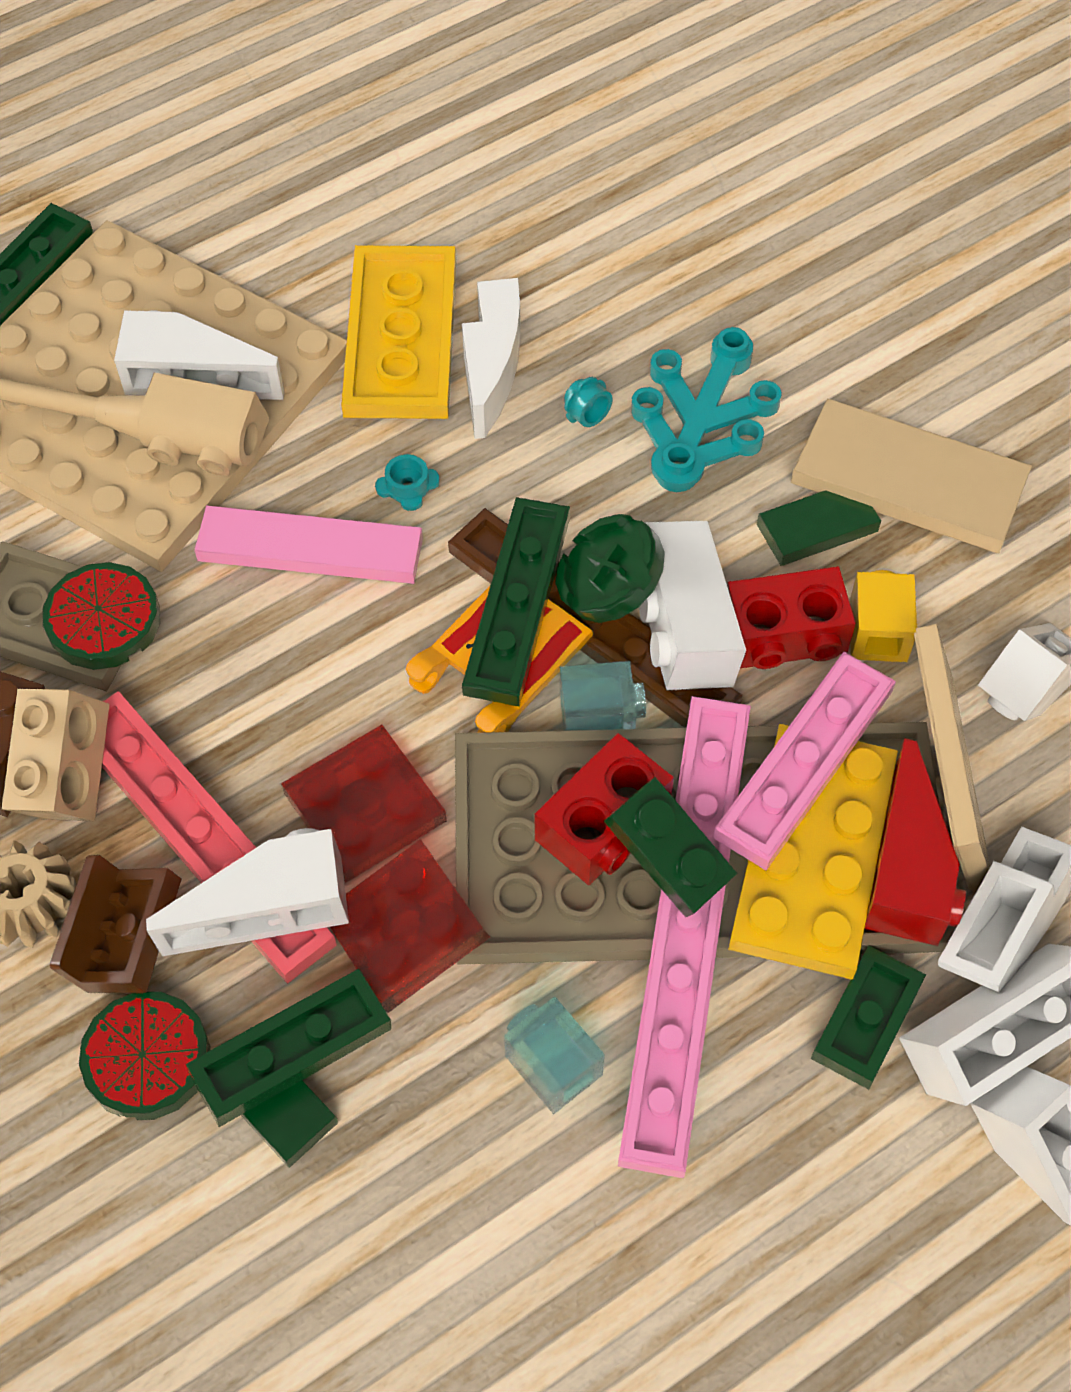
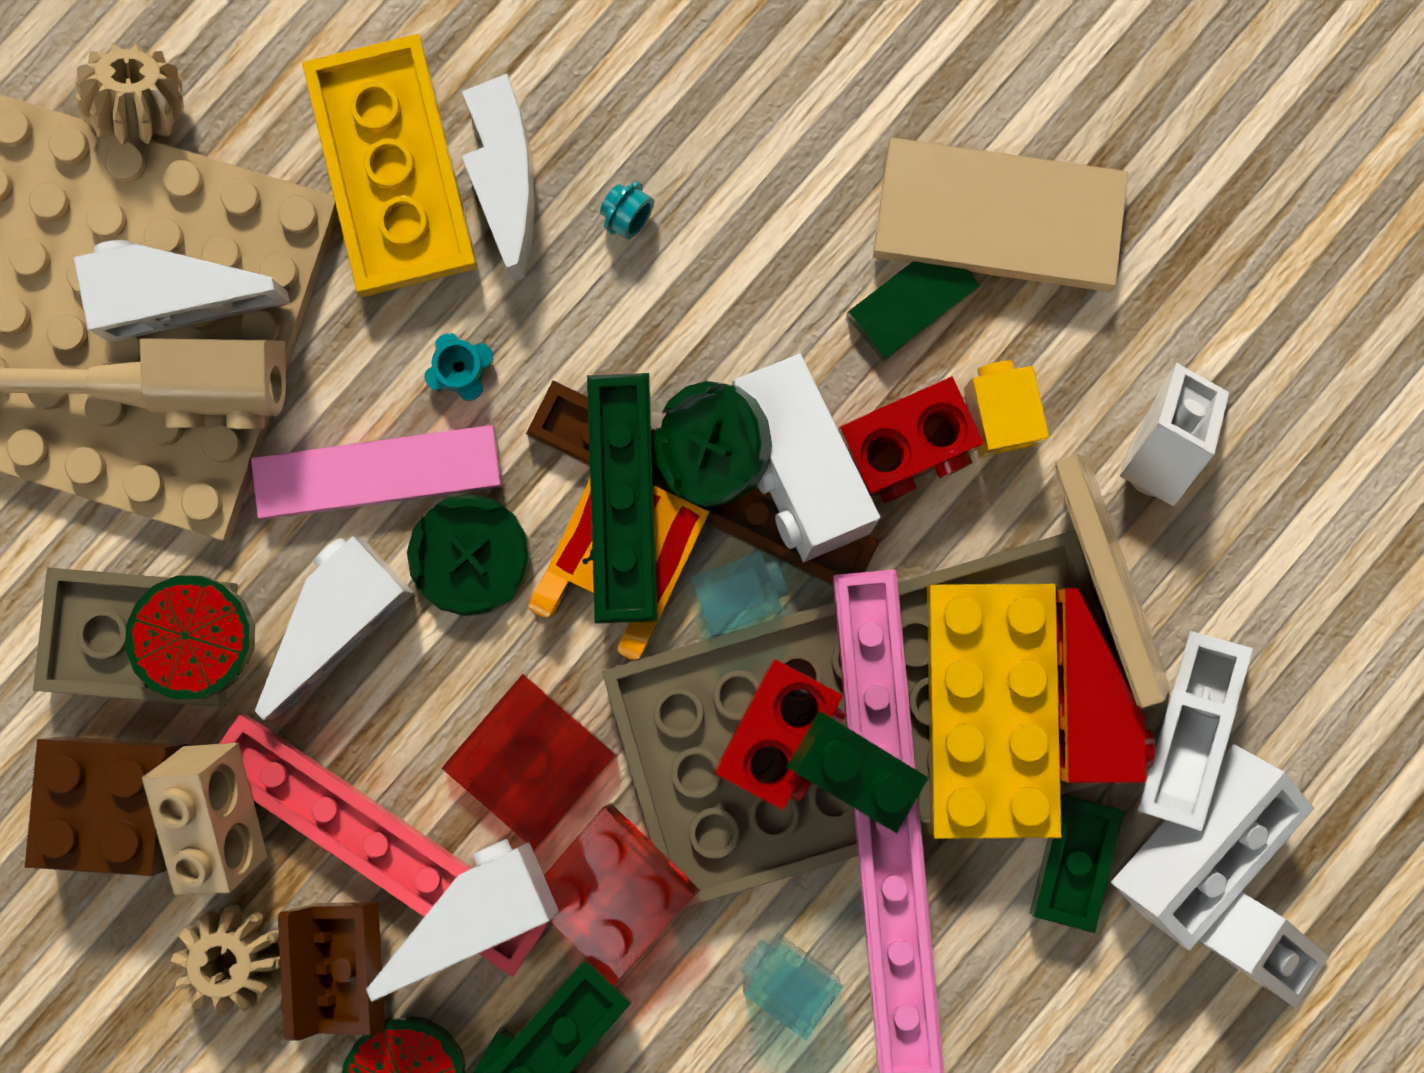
camera: 15 degrees left, 25 degrees up
(211, 235) = (129, 93): none -> tan gear
(228, 639) = (333, 615): none -> white slope
(366, 626) = (469, 555): none -> dark green tile
(729, 356) = (755, 193): teal plant -> none
(804, 761) = (969, 630): bright pink tile -> none

